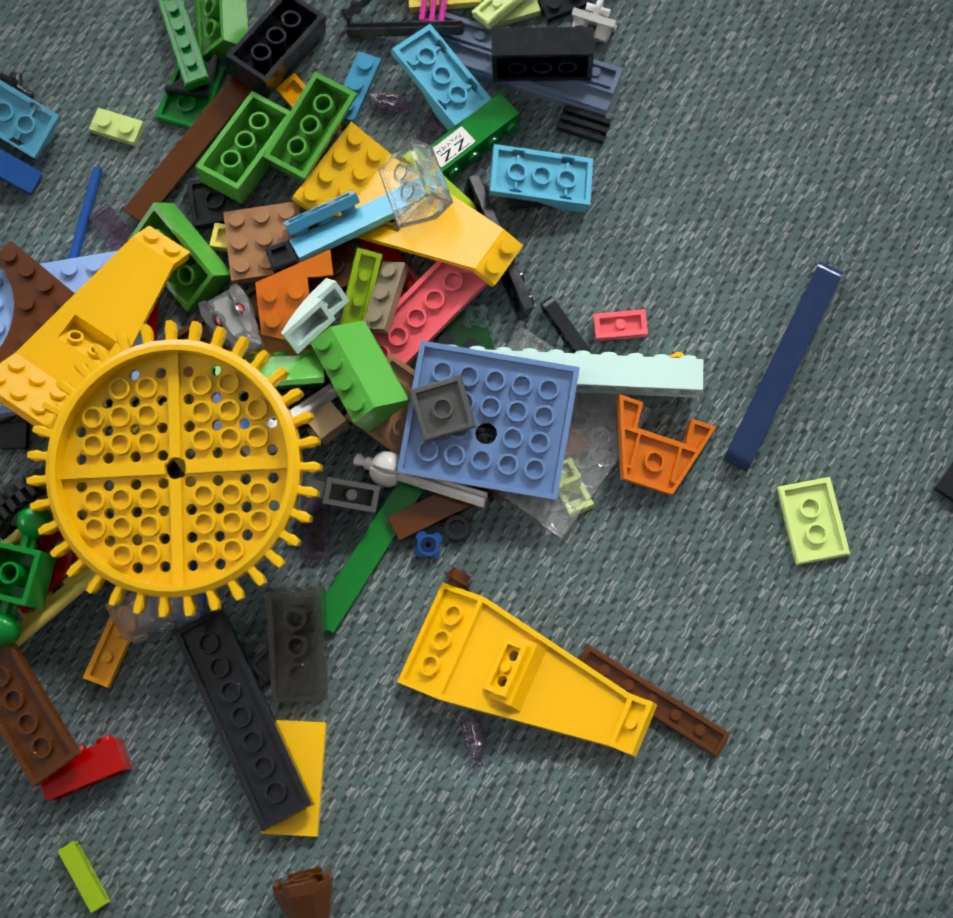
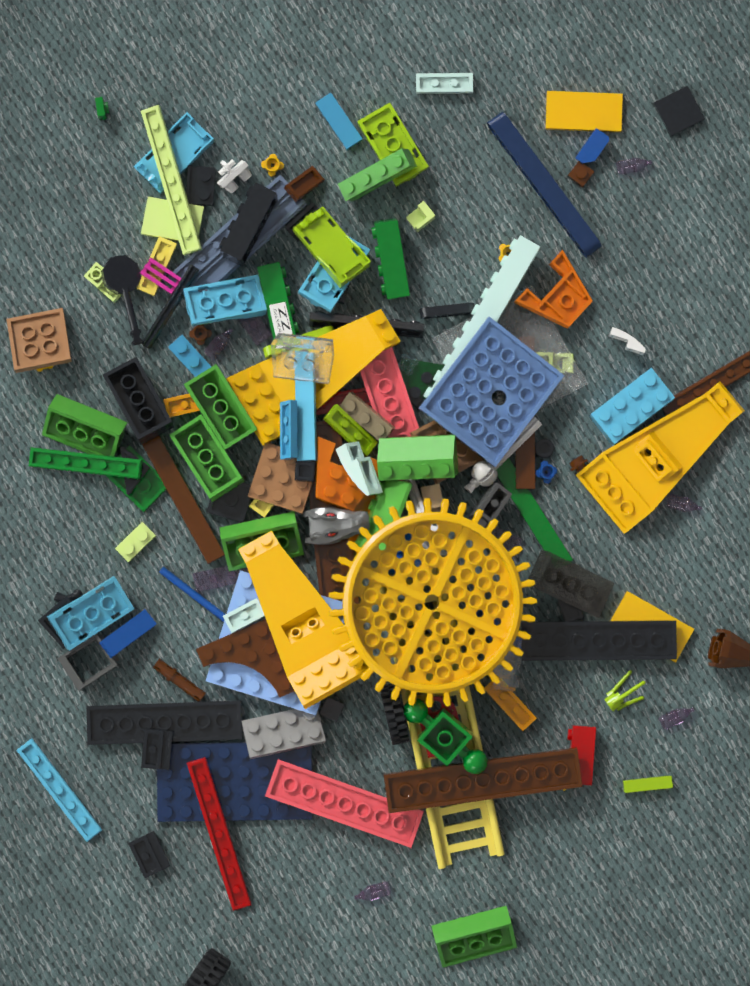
camera: 70 degrees left, 10 degrees up
(70, 270) = (244, 615): none -> light aqua plate
(175, 779) = (614, 700): none -> lime plant
(188, 869) = (674, 717): none -> clear purple piece
(392, 71) = (195, 334): none -> reddish brown plate
(442, 408) = (471, 416): dark grey tile -> none
(564, 609) = (632, 407): none -> medium azure brick
(567, 157) = (331, 247): none -> lime piece
(592, 231) = (391, 258): none -> green wedge
(620, 325) = (462, 273): coral plate -> none
(627, 99) = (304, 183): none -> reddish brown tile
(634, 53) = (272, 159): none -> yellow plate
(644, 568) = (632, 344): none -> white slope
(662, 246) = (421, 216): none -> yellowish green panel
(682, 165) = (377, 175): none -> bright green brick
(722, 103) = (338, 121): none -> dark azure tile
(729, 170) = (390, 138): none -> lime piece
(813, 521) = (653, 223): yellowish green tile -> none
(822, 403) = (580, 174): none -> reddish brown plate
(837, 193) = (444, 83): none -> light aqua plate
(864, 399) = (592, 147): none -> blue piece
(869, 458) = (631, 165): none -> clear purple piece
(901, 369) = (583, 111): none -> yellow tile

